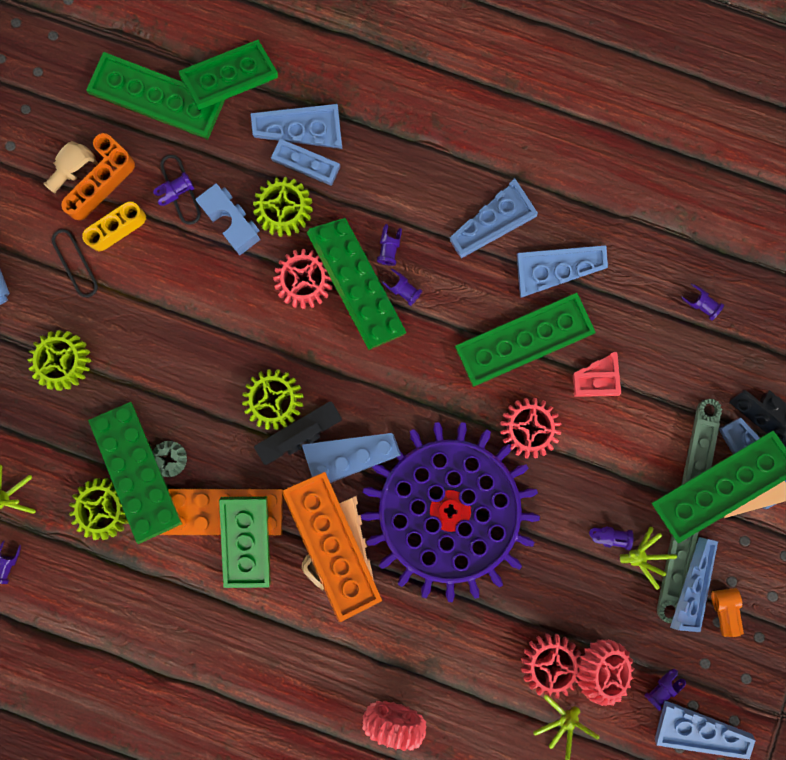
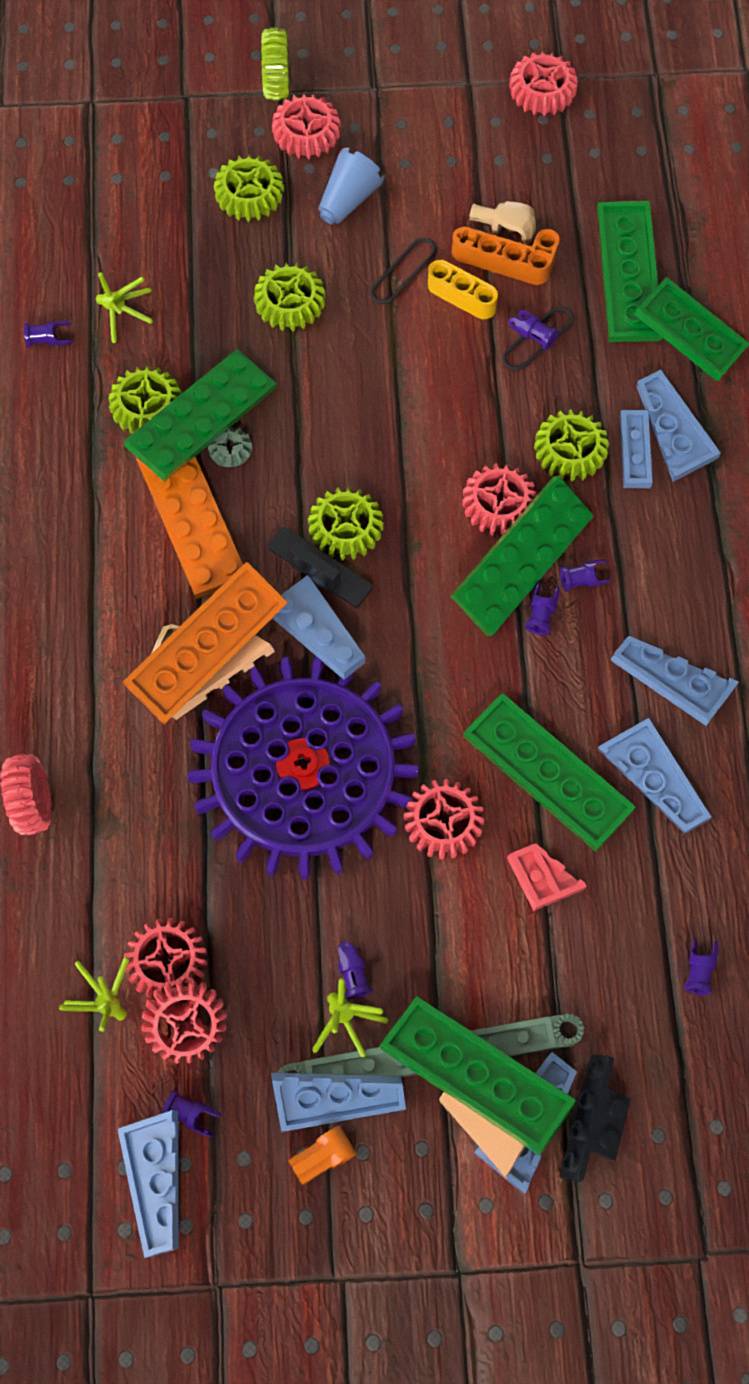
camera: 65 degrees right, 15 degrees down
(217, 204) = (519, 415): medium blue arch -> none
(245, 542) = (171, 556): plate -> none

